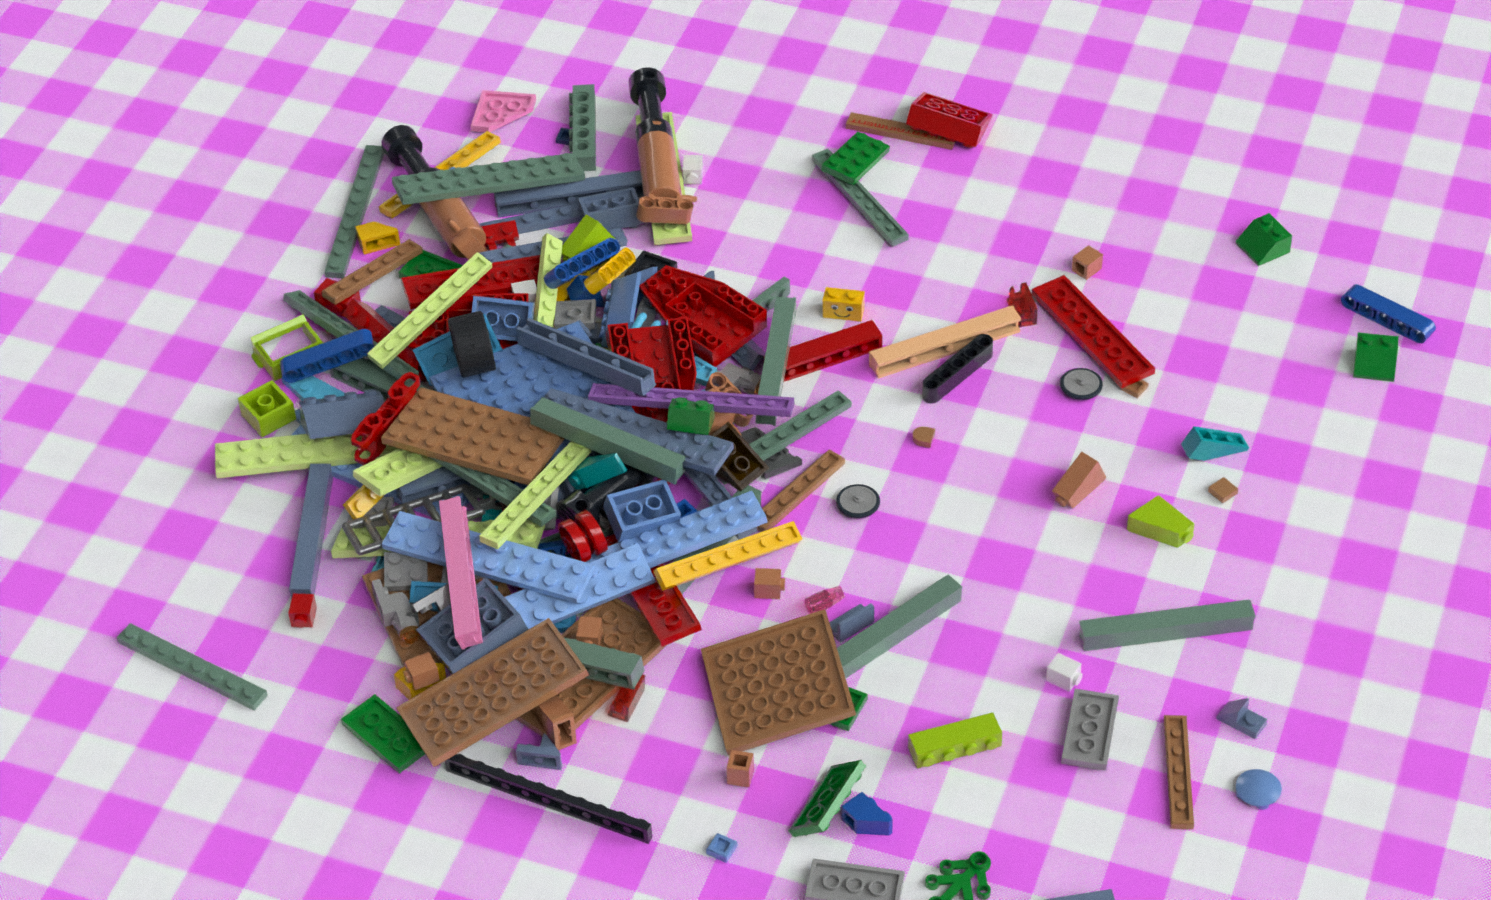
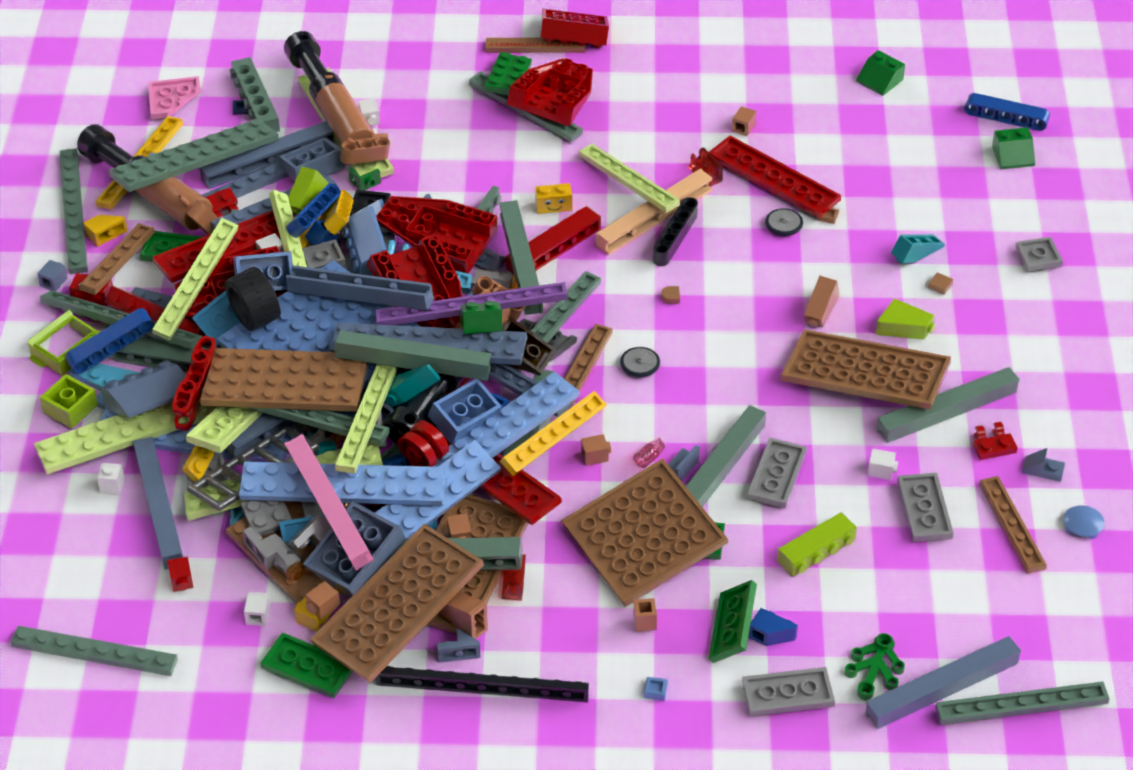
camera: 20 degrees left, 0 degrees up
(275, 497) = (111, 479): none -> white brick
(305, 275) = (52, 275): none -> sand blue brick
(361, 664) = (257, 608): none -> white brick
(660, 242) = (365, 181): none -> green bracket
(893, 185) = (553, 90): none -> red wedge
(931, 299) = (629, 178): none -> yellowish green plate
(948, 654) = (777, 473): none -> light grey plate
(1093, 565) = (866, 369): none -> medium nougat plate
(1199, 682) = (995, 446): none -> red plate
(1348, 482) = (1039, 254): none -> light grey plate

